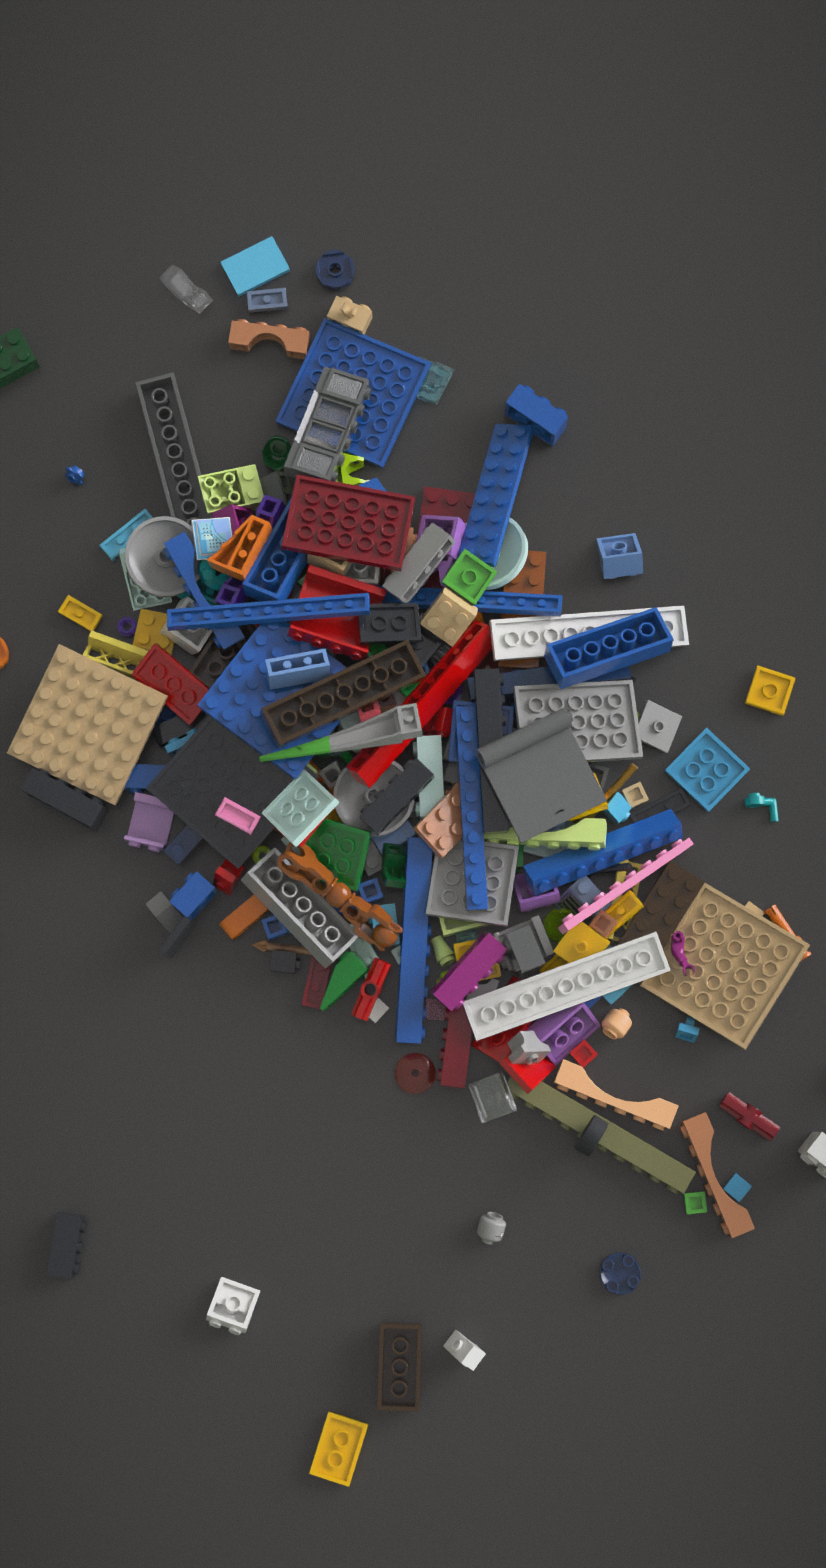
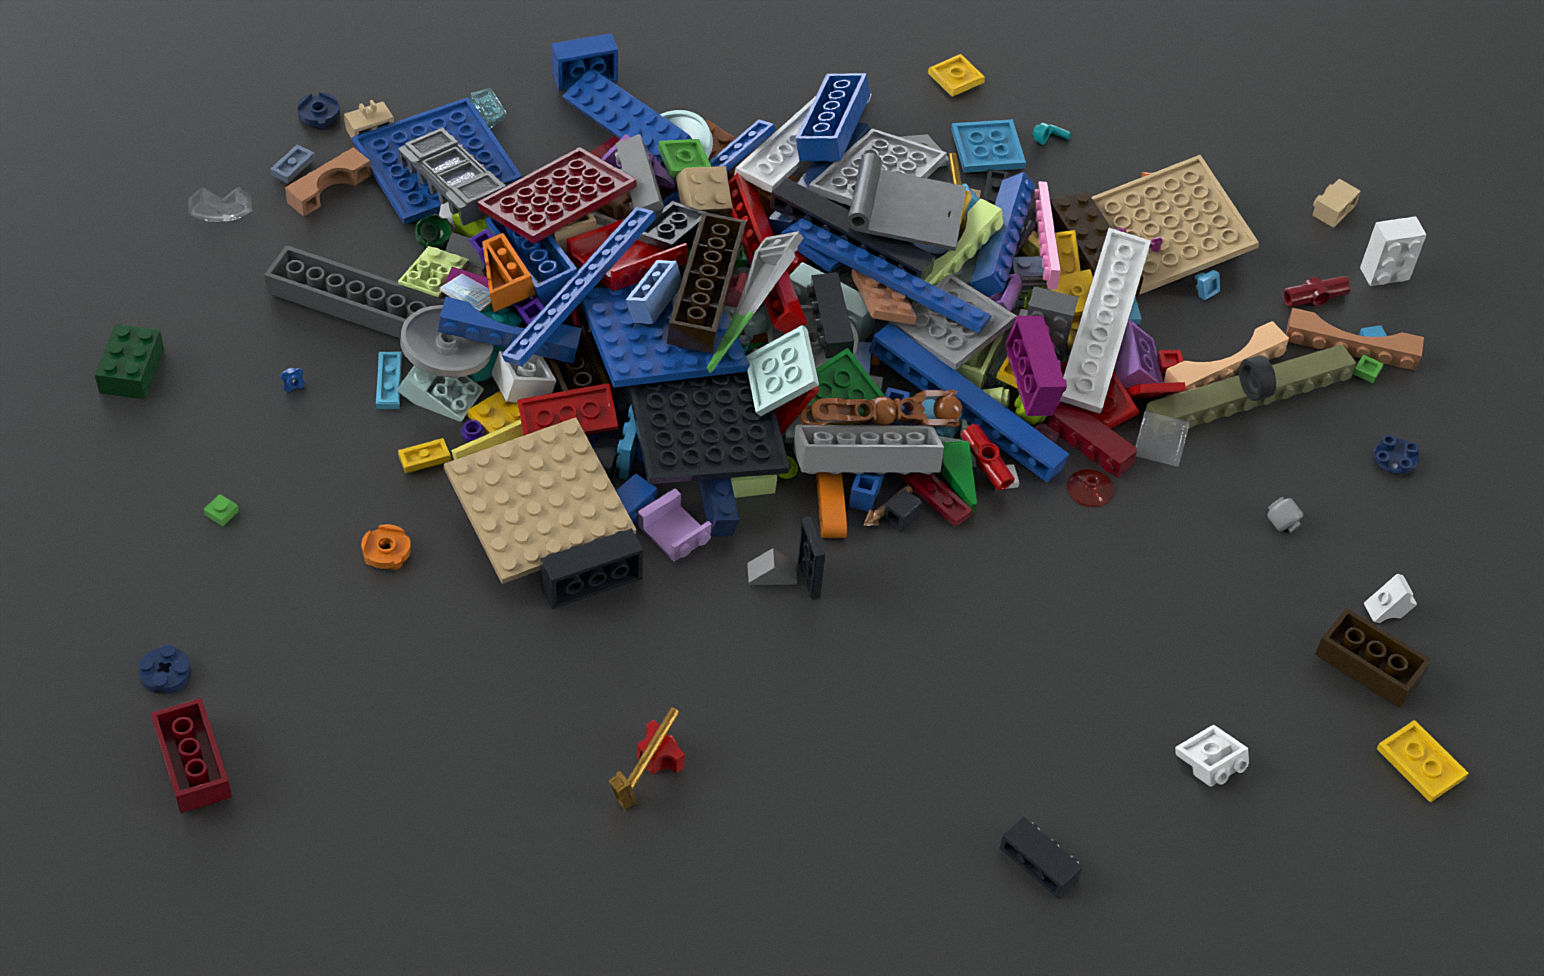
camera: 60 degrees left, 30 degrees down
(193, 895) = (779, 526): blue brick -> none
(227, 877) = (784, 496): red brick -> none
(237, 815) = (741, 431): bright pink tile -> none
(255, 266) = (253, 156): medium azure tile -> none
(392, 865) = (885, 369): dark green slope -> none
(527, 1048) = (1139, 373): light grey brick -> none
(603, 923) = (1069, 264): nougat tile -> none
(616, 1023) = (1162, 323): light nougat head -> none
(620, 556) = (756, 89): medium blue slope -> none

